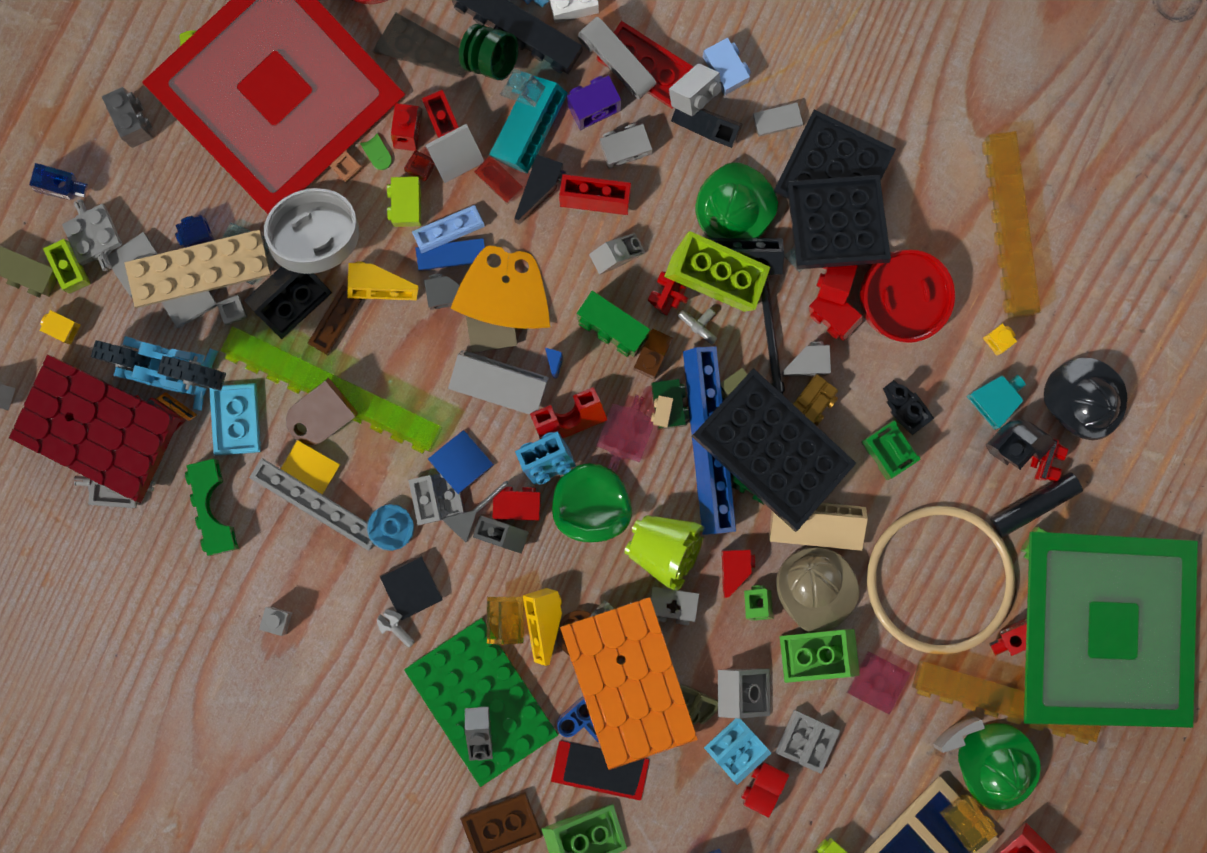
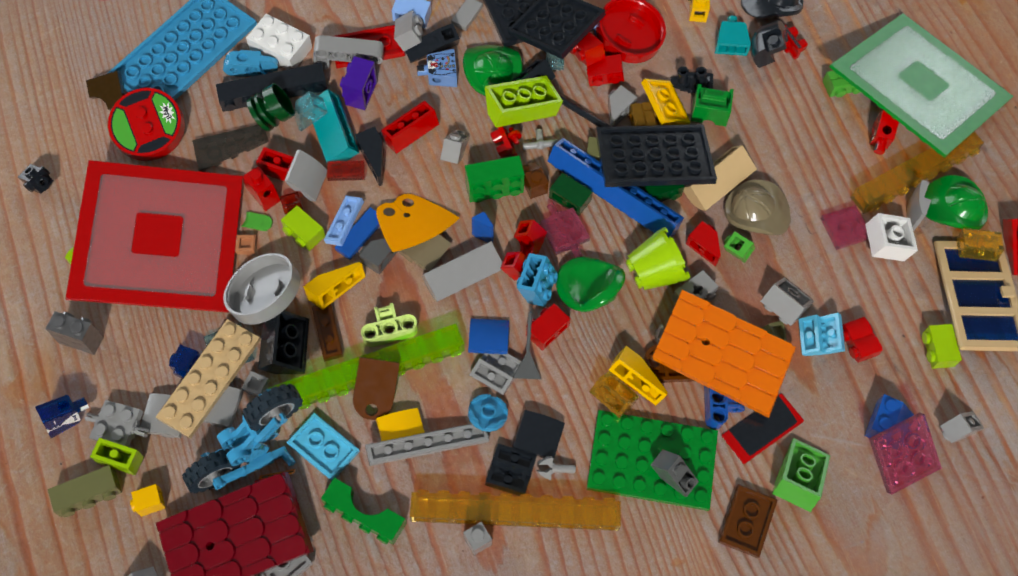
camera: 50 degrees left, 20 degrees down
(327, 629) = (515, 511): none -> clear yellow brick
(360, 592) = (511, 470): none -> black slope
(390, 361) = (387, 319): none -> yellowish green piece
(500, 534) = (556, 351): dark grey slope -> none
(625, 145) = (399, 92): light grey brick -> none
(662, 413) = (573, 194): tan piece -> none
(687, 157) = (440, 69): none -> medium blue torso
(807, 741) = (849, 293): light grey slope -> none
(819, 655) = (801, 241): bright green slope -> none
(853, 403) = (665, 102): none -> yellow tile
(897, 633) = (797, 190): tan piece -> none
(898, 735) = (891, 237): none -> white brick
(1036, 504) = (811, 67): black brick -> none

